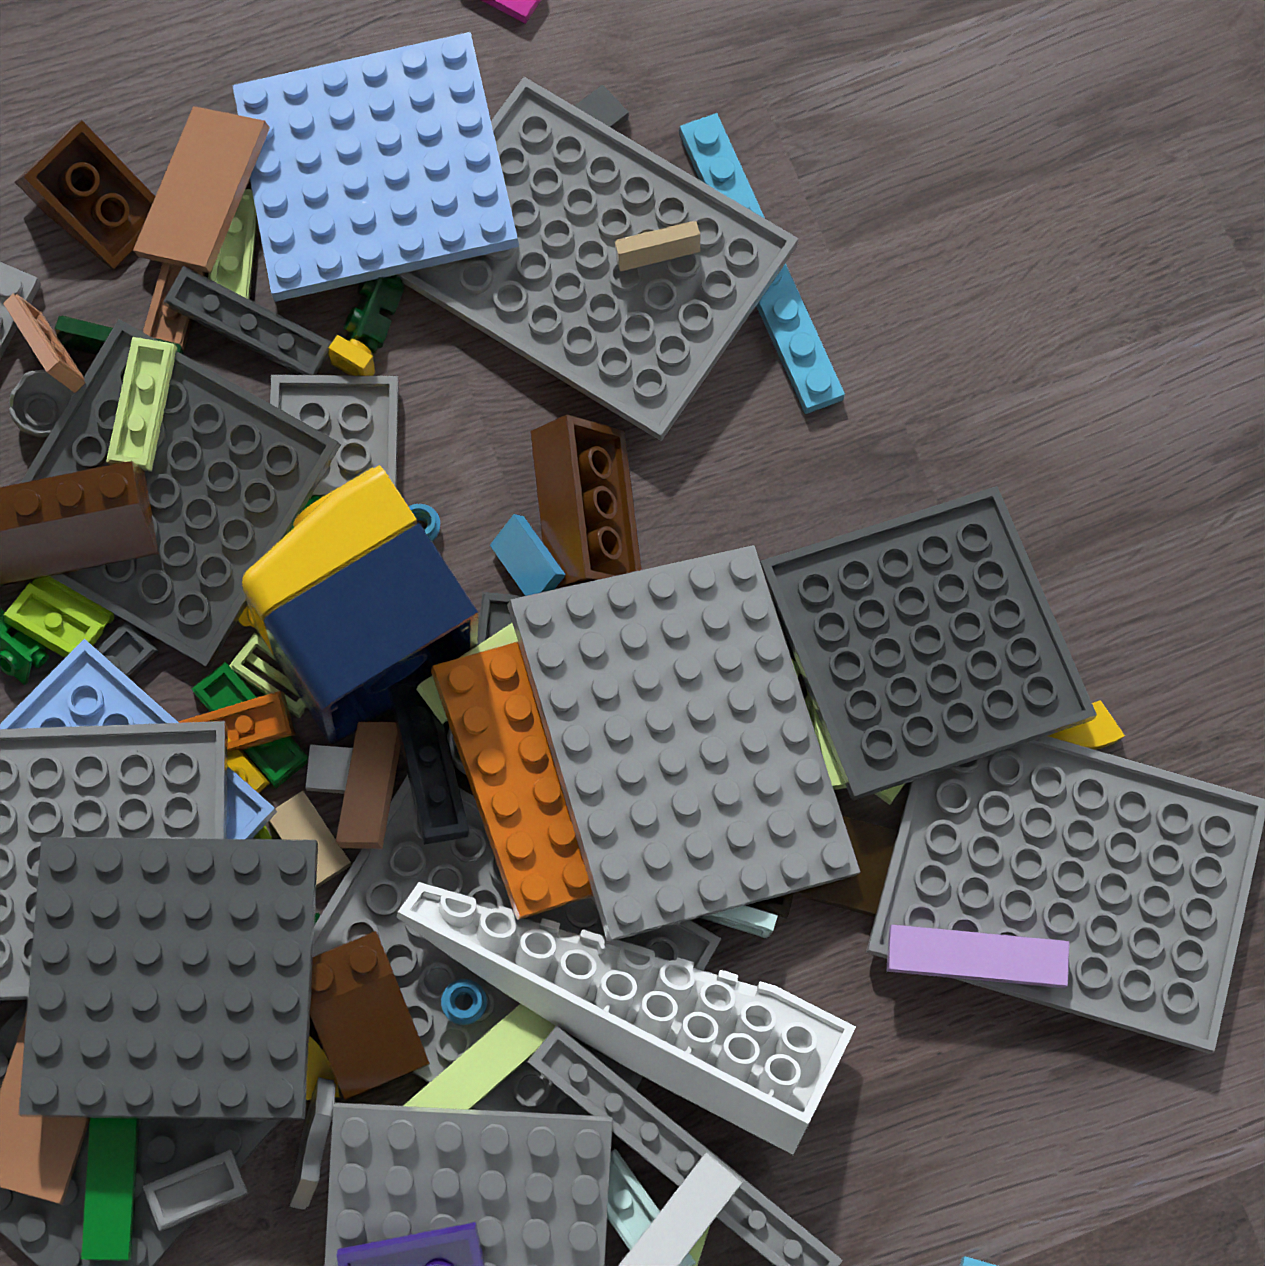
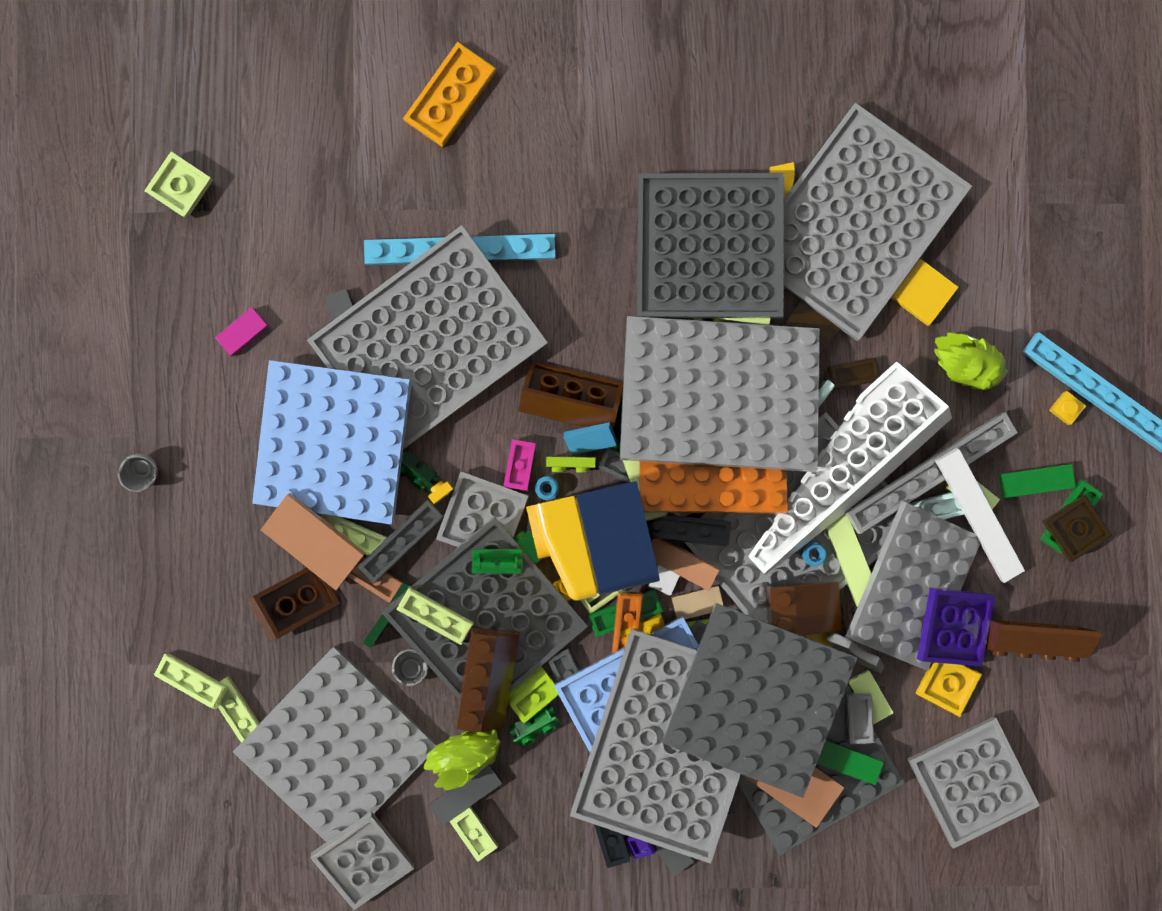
camera: 60 degrees left, 15 degrees up
(44, 342) = (378, 656): nougat tile -> none
(232, 1221) = (866, 684): none -> yellowish green tile
(265, 467) = (496, 561): none -> green hinge
(442, 466) = (519, 465): none -> dark pink plate
(468, 528) = (560, 464): none -> lime plate
(657, 245) = (440, 304): tan tile -> none
(807, 967) = (854, 373): none -> dark brown tile
(906, 1157) = (970, 361): none -> lime head
(978, 956) = (884, 285): lavender tile -> none
(997, 1041) = (924, 292): none -> yellow tile
(1001, 166) = (450, 94): none -> light orange tile

